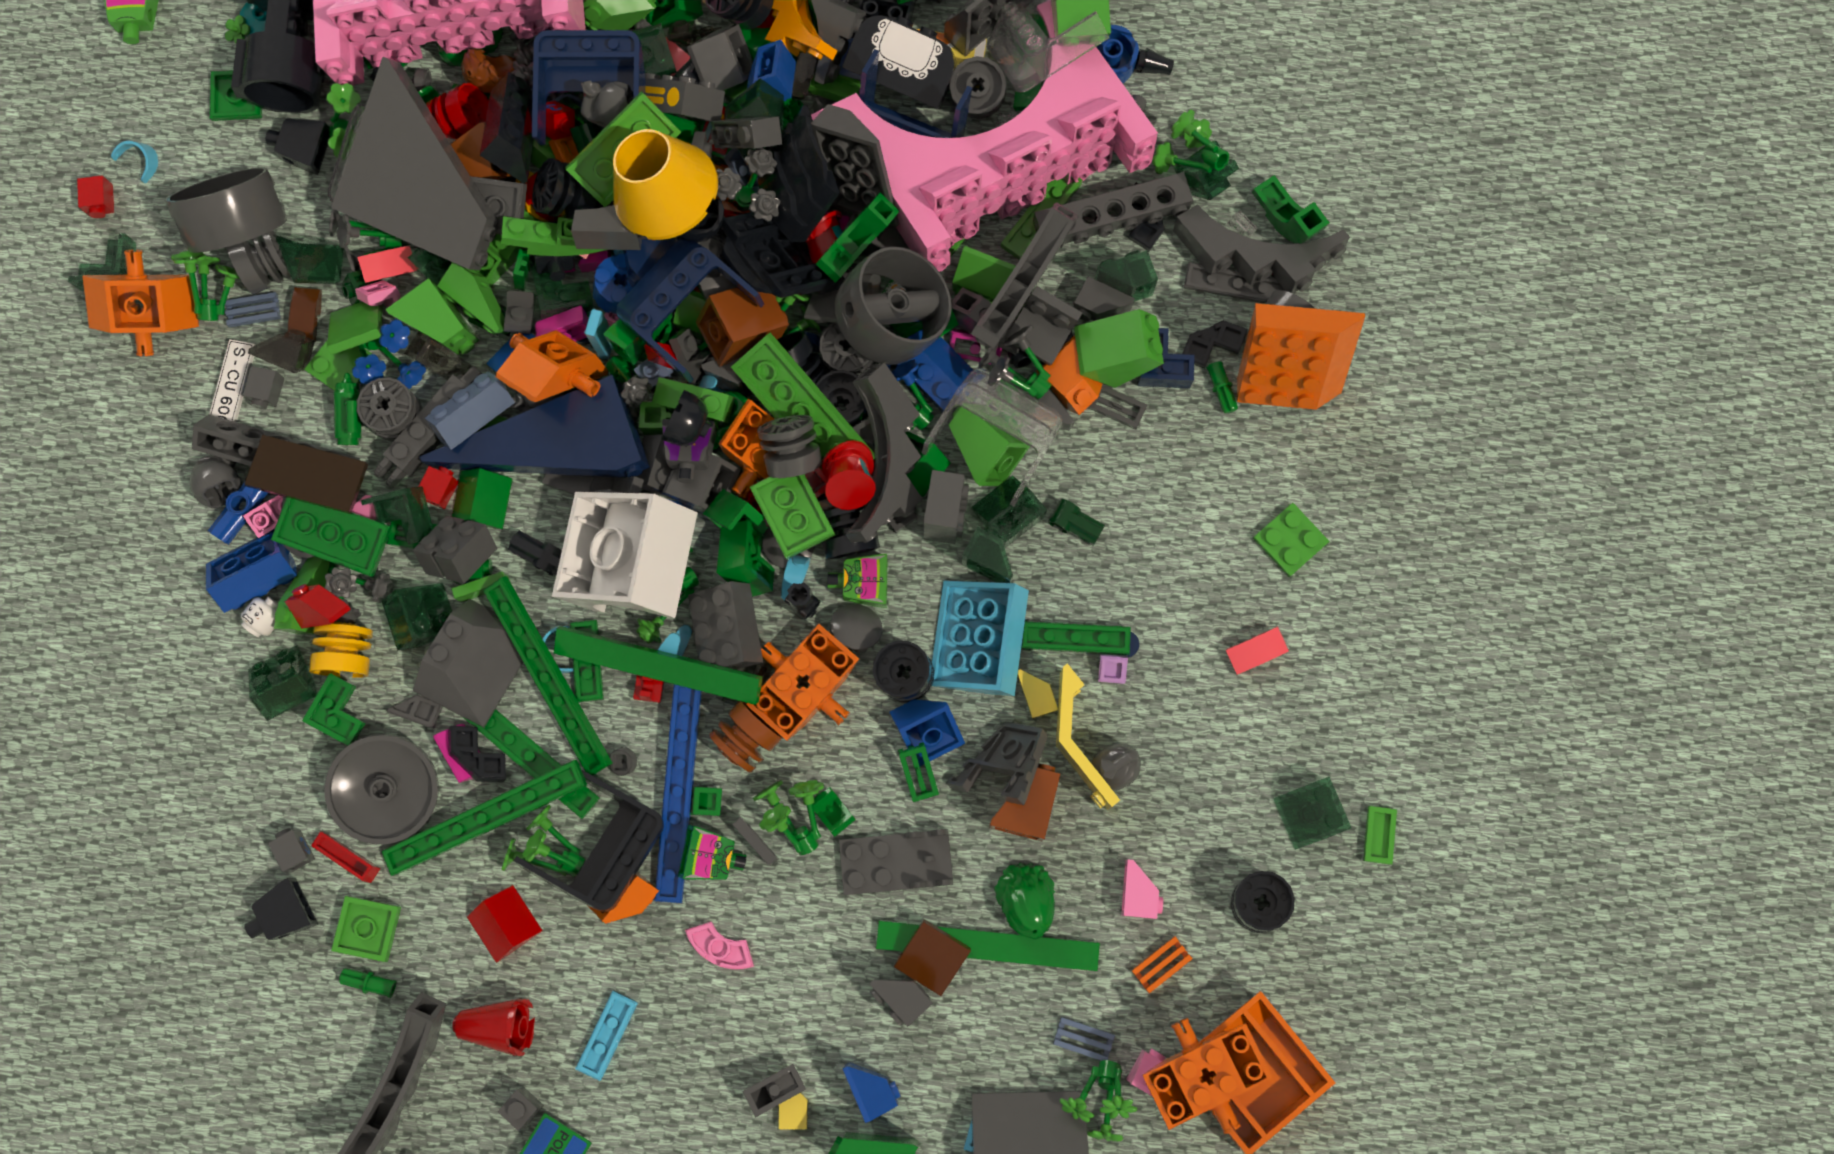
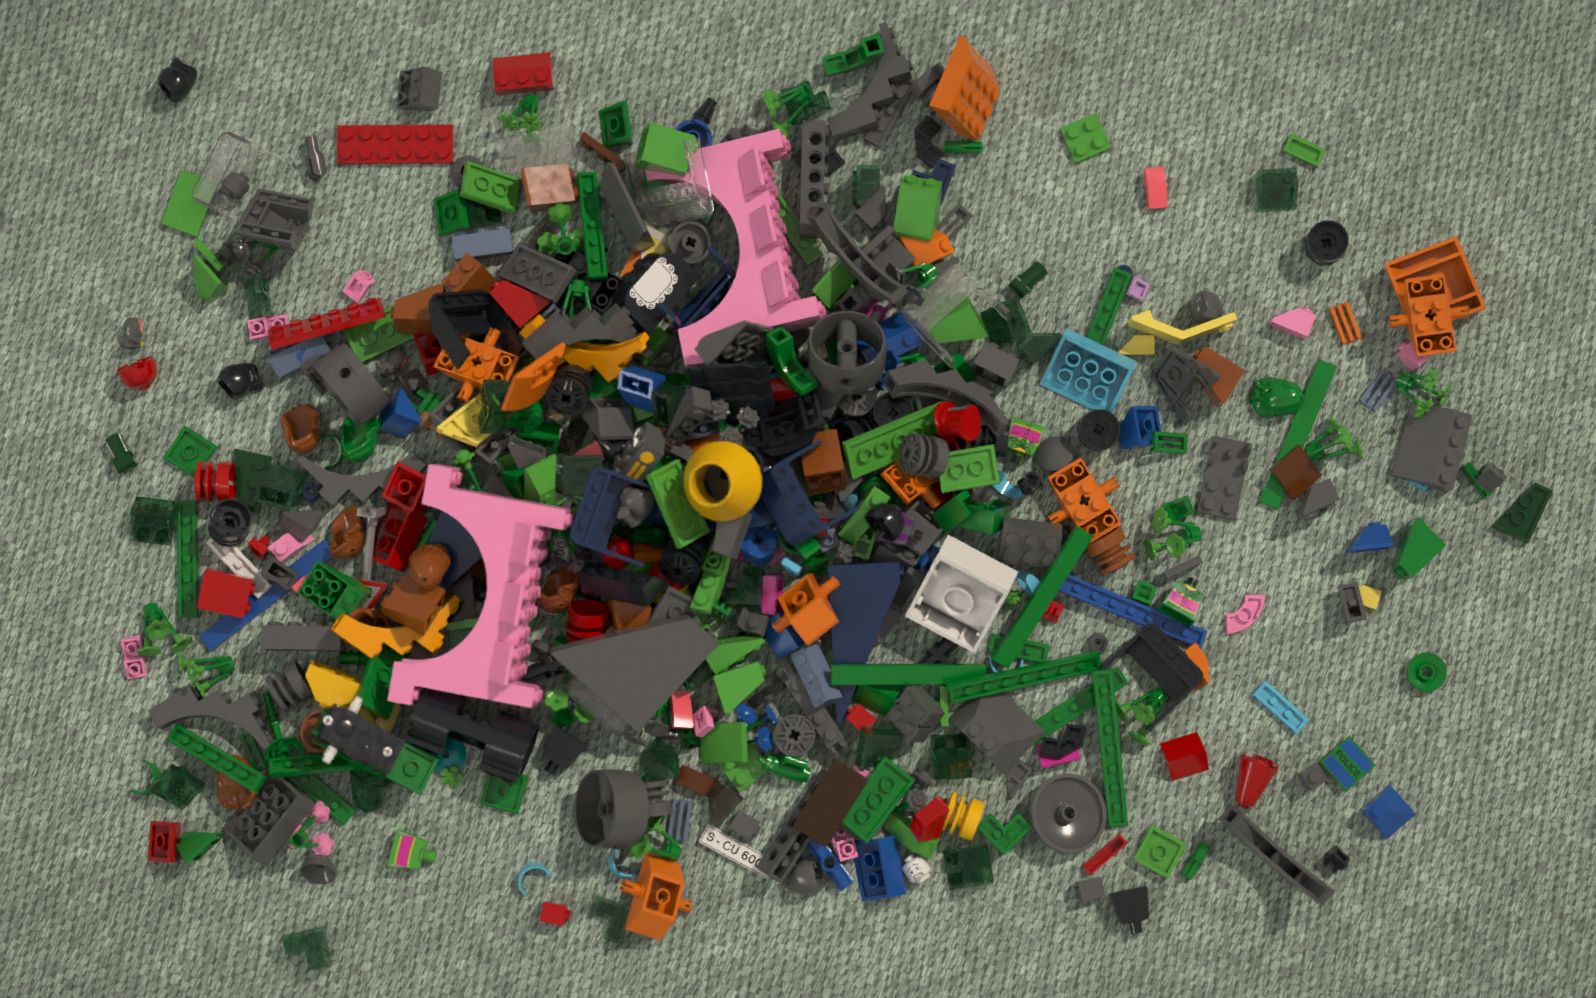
camera: 75 degrees left, 5 degrees up
(167, 251) = (614, 870): none -> medium azure helmet
(505, 520) = (903, 673): none -> green tile
(996, 1008) = (1316, 451): none -> plant

